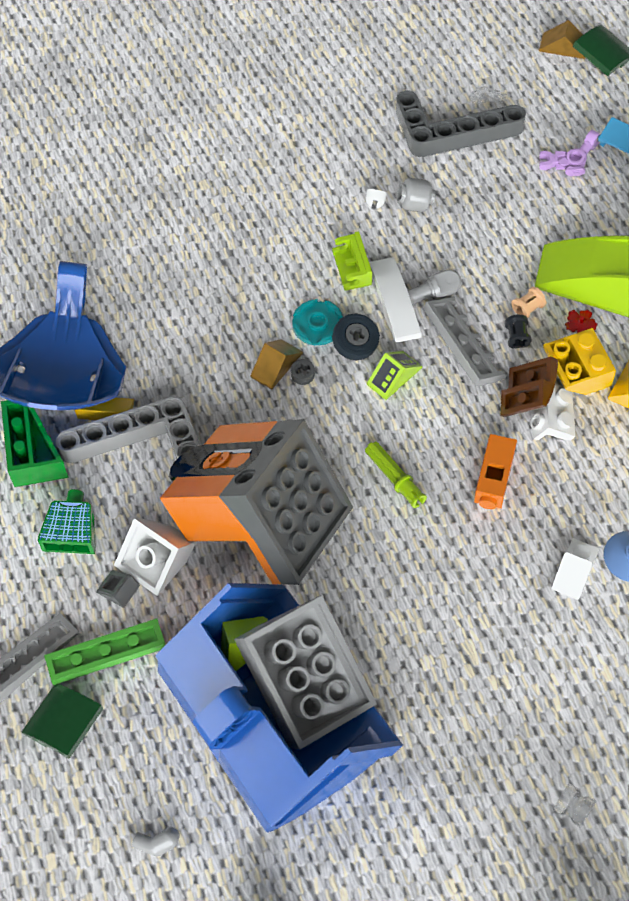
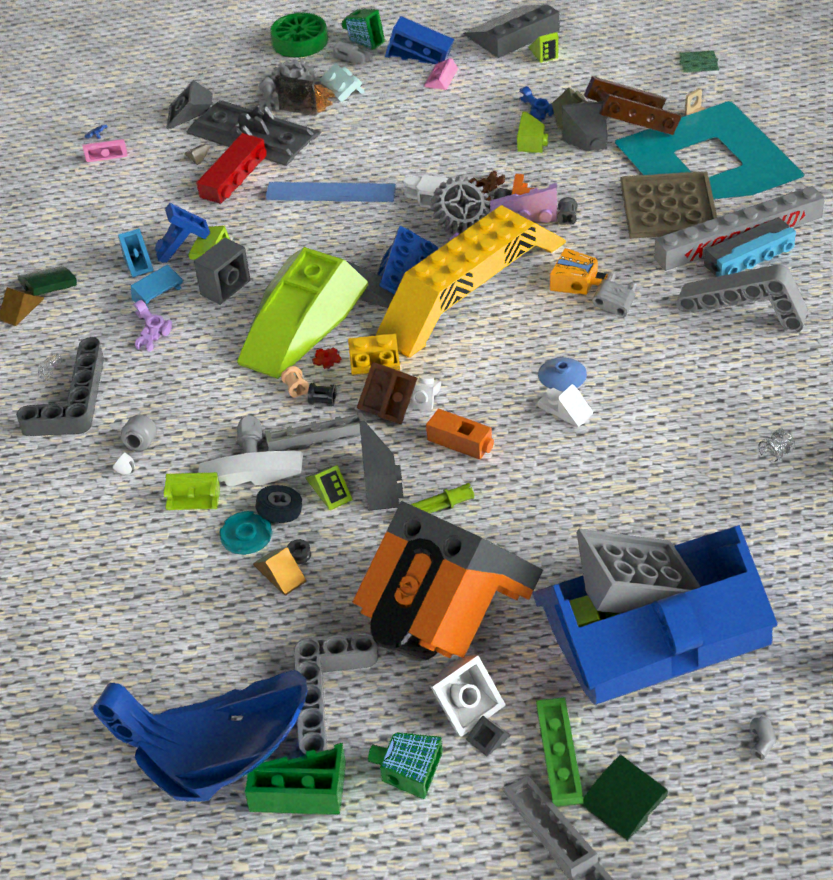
camera: 75 degrees left, 15 degrees down
(410, 404) = (379, 471): none -> dark grey slope

